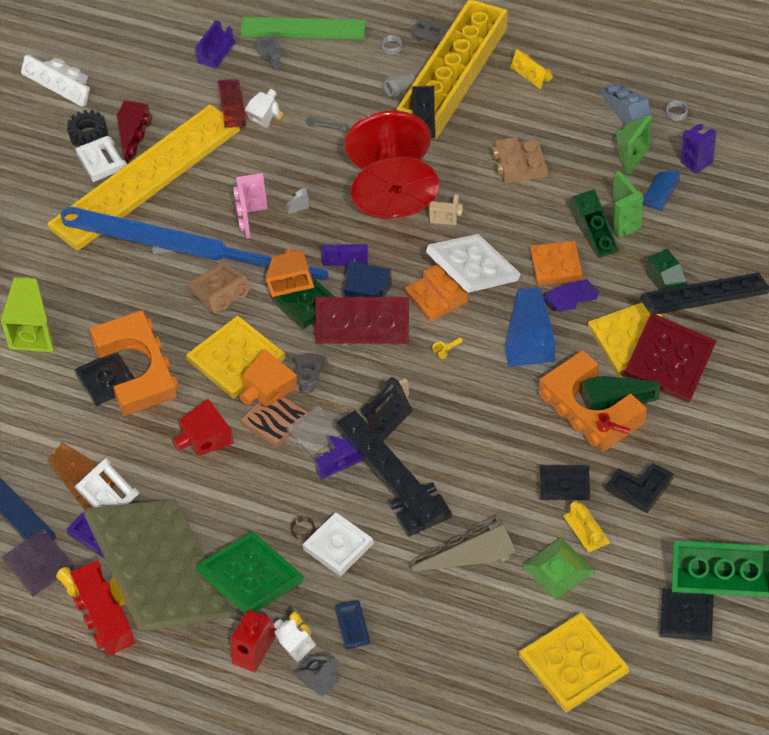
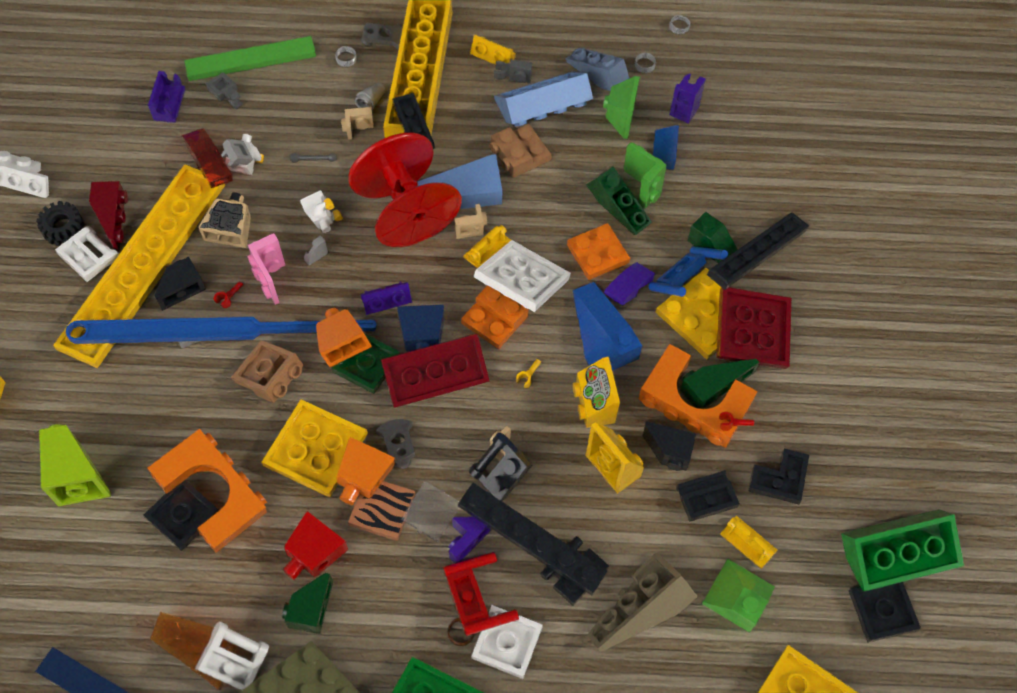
camera: 25 degrees left, 10 degrees up
(168, 200) = (178, 284): none -> black slope
(184, 471) = (309, 605): none -> dark green slope
(203, 222) = (229, 294): none -> red hand
(229, 159) = (227, 222): none -> torso
(256, 101) = (236, 152): none -> light grey tile
(312, 168) = (318, 208): none -> white piece
(318, 500) = (468, 597): none -> red plate
(378, 100) = (357, 119): none -> tan bracket
(460, 229) = (487, 246): none -> yellow hinge
(464, 178) = (476, 182): none -> medium blue slope
(490, 425) = (612, 457): none -> yellow slope
(497, 375) = (597, 393): none -> yellow slope
(546, 90) = (517, 71): none -> dark grey plate
(550, 434) = (670, 445): none -> black slope
(562, 119) = (544, 97): none -> medium blue slope
(616, 301) = (688, 266): none -> blue plate
(727, 76) = (679, 17): none -> light grey axle

